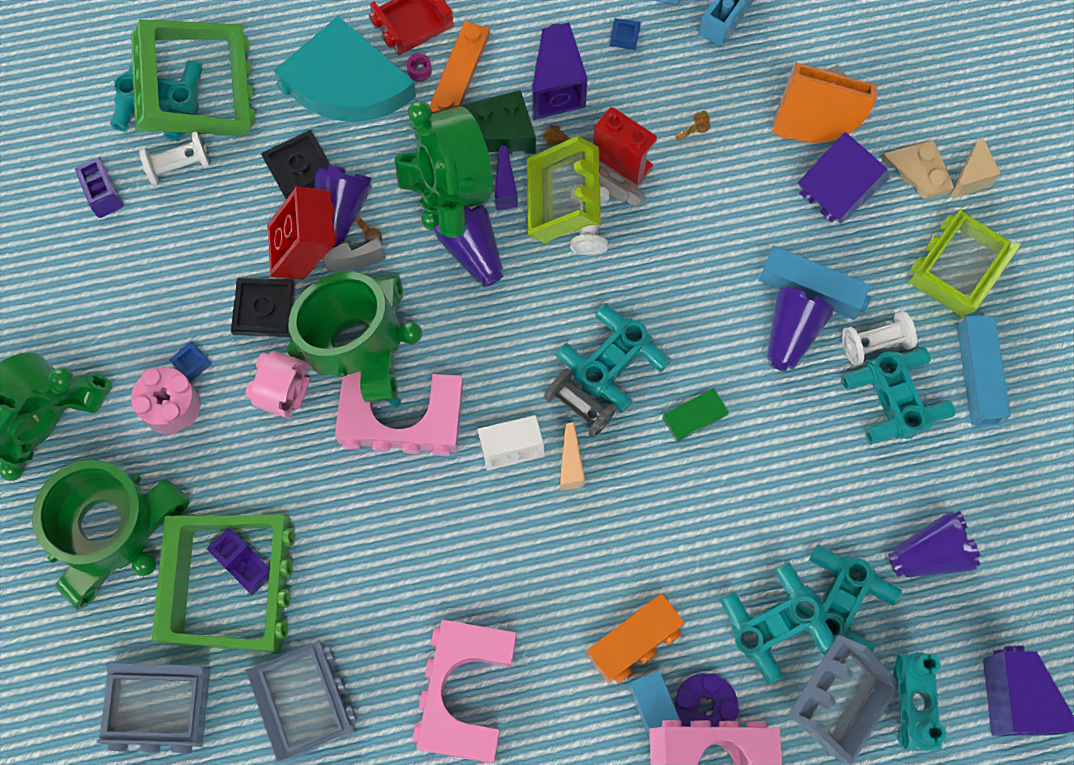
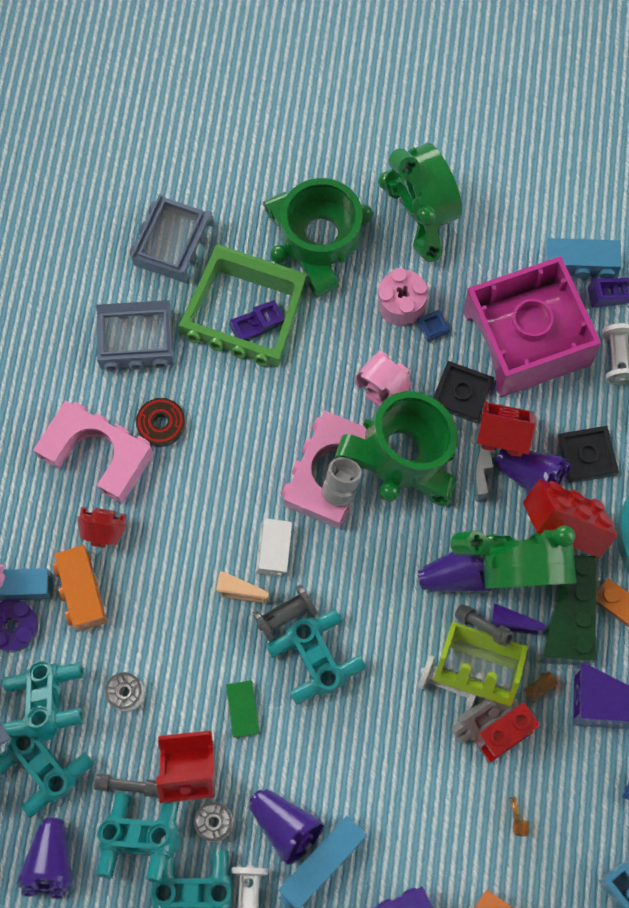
camera: 115 degrees right, 0 degrees up
(65, 227) = (586, 256): none -> dark azure brick
(166, 242) = (533, 325): none -> dark pink piece
(367, 231) = (505, 492): clear orange hand -> none
(382, 145) = (554, 506): none -> red brick
(402, 609) = (160, 408): none -> dark brown tile
(418, 381) = (341, 481): none -> light grey wheel
(514, 227) = (501, 635): none -> dark grey bar
(556, 640) = (101, 526): none -> red cone
(729, 530) = (115, 687): none -> white wheel
(783, 441) = (186, 767): none -> red panel
(815, 478) = (104, 782): none -> dark grey bar
(832, 397) = (202, 822): none -> wheel
(873, 463) = (138, 838): none -> teal piece

